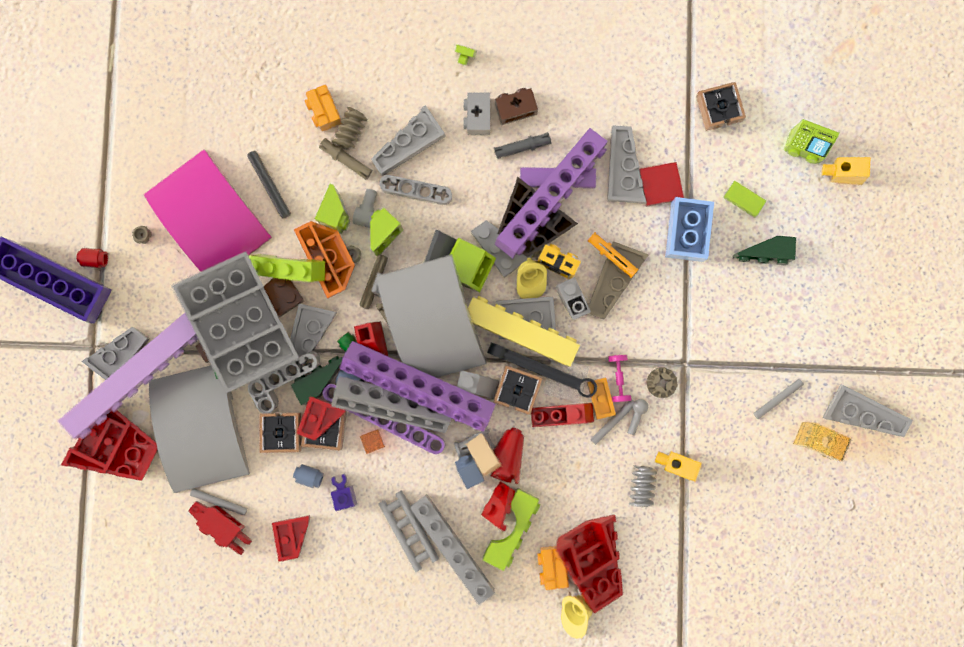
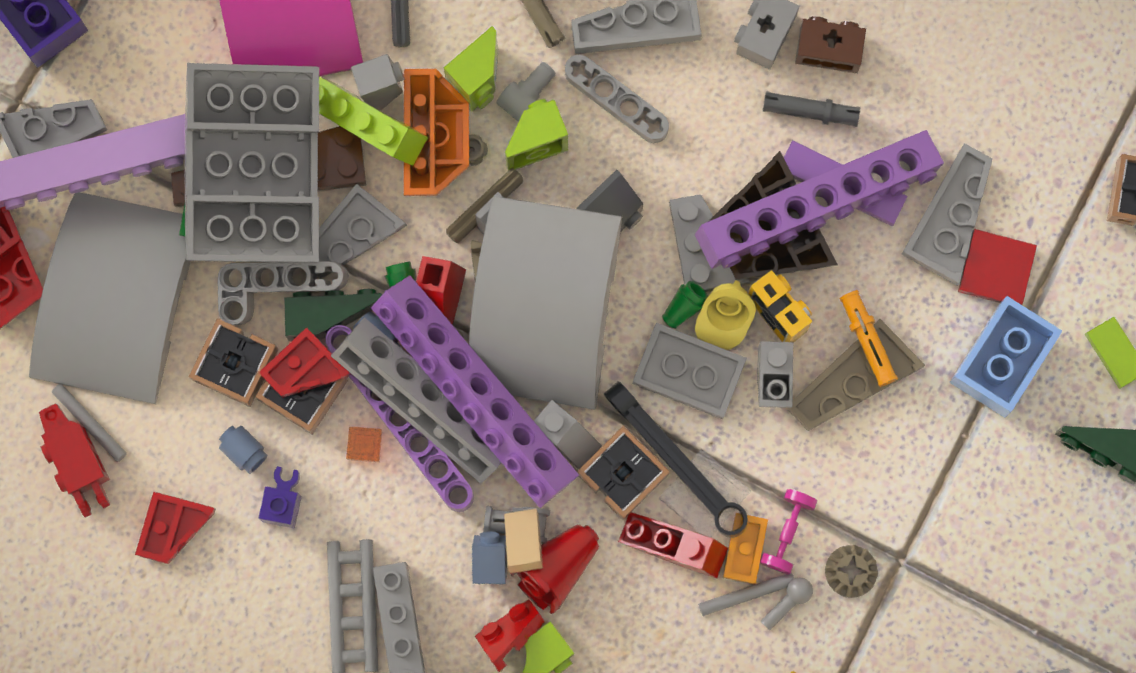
camera: 25 degrees right, 5 degrees down
(283, 242) = (378, 81): none -> light grey slope
(472, 264) = (646, 249): lime slope -> none
(507, 281) = (684, 304): none -> green cone
(522, 332) = (673, 388): light yellow brick -> none

